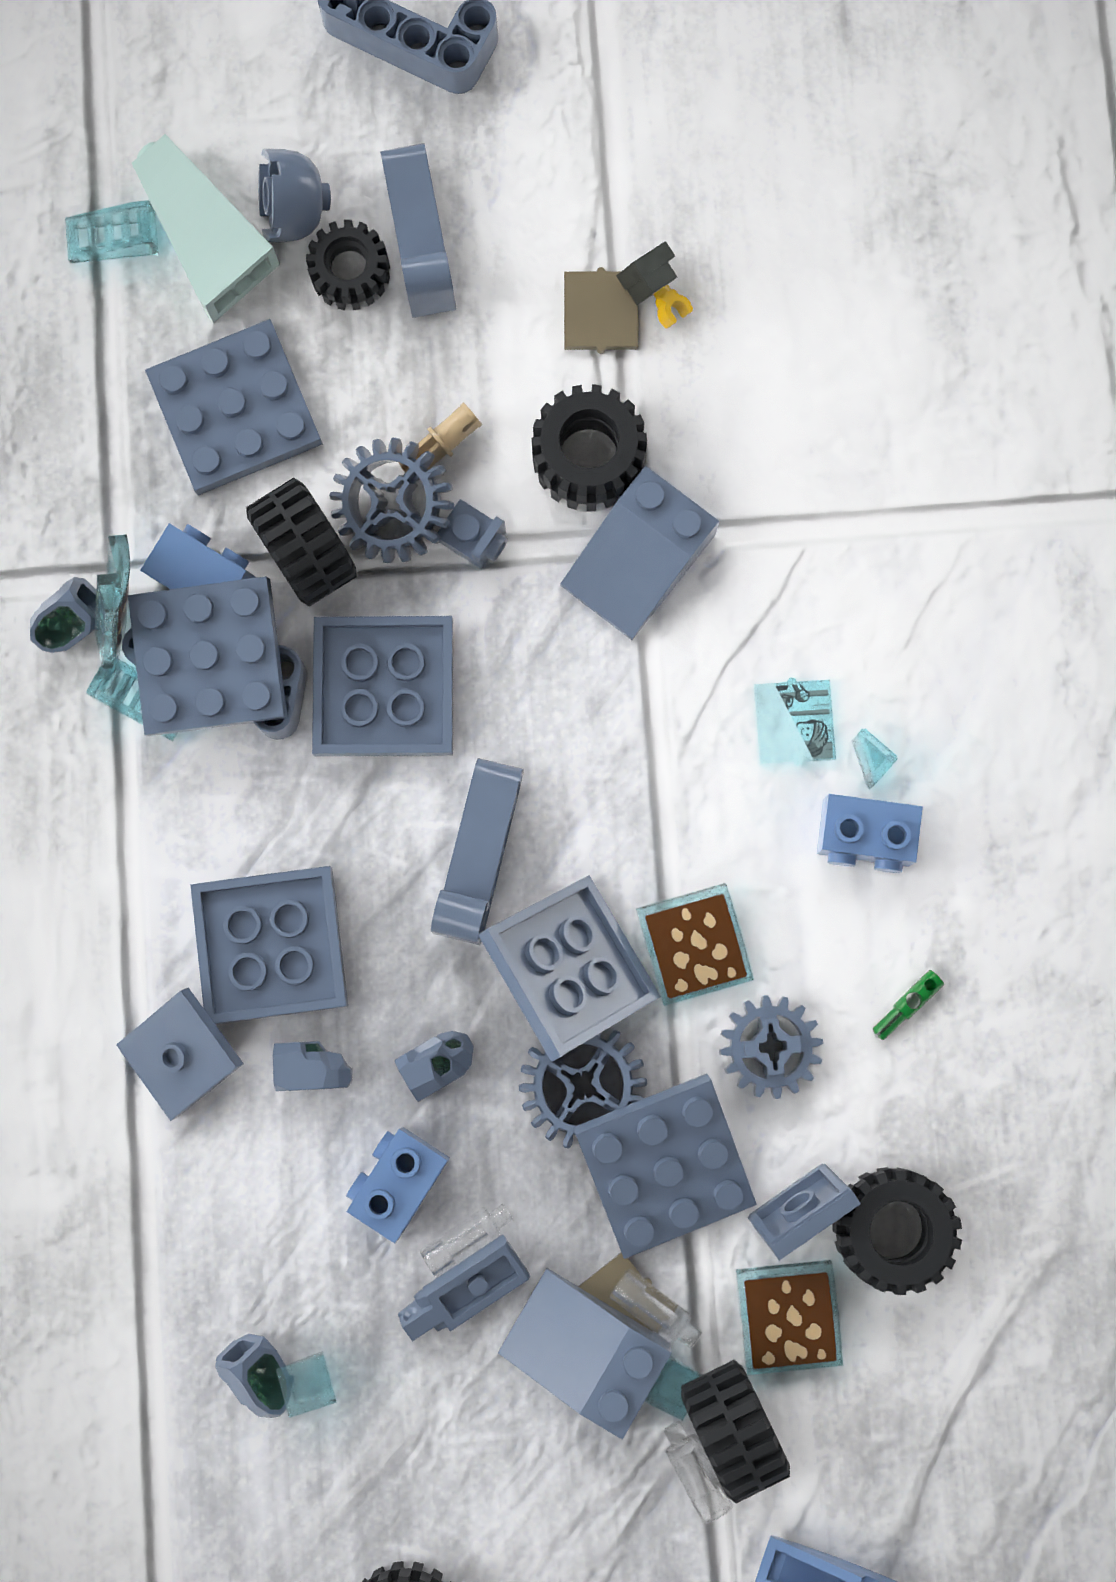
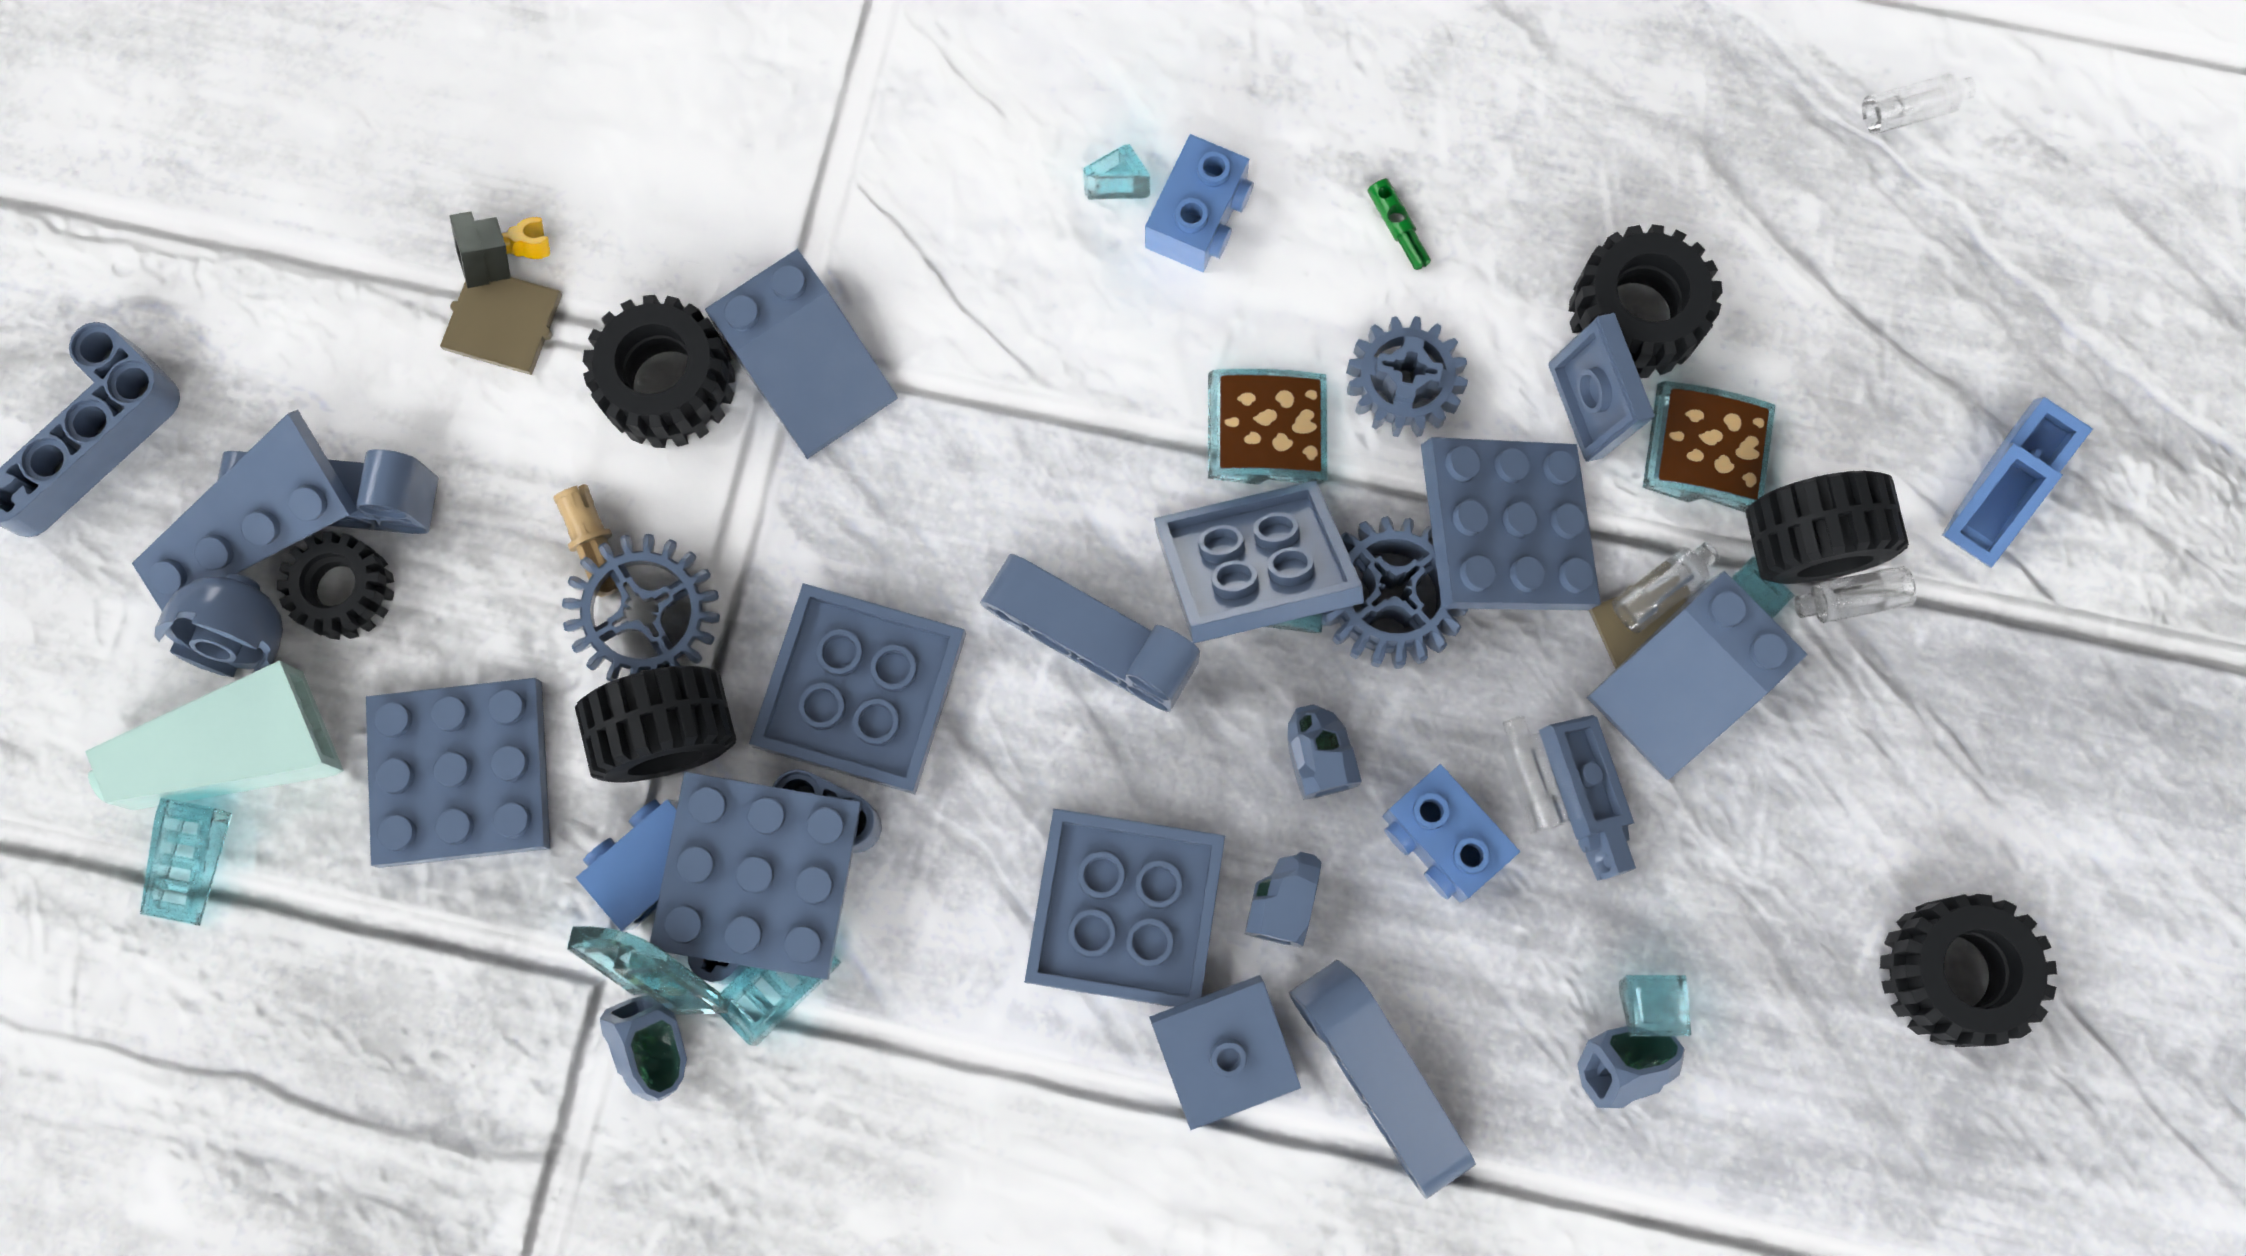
camera: 75 degrees left, 5 degrees down
(192, 1179) = (1383, 1076): none -> sand blue beam
(380, 185) = (252, 512): none -> sand blue wing
(474, 534) = (715, 534): sand blue bracket -> none
(794, 722) = (1049, 251): clear light blue piece -> none

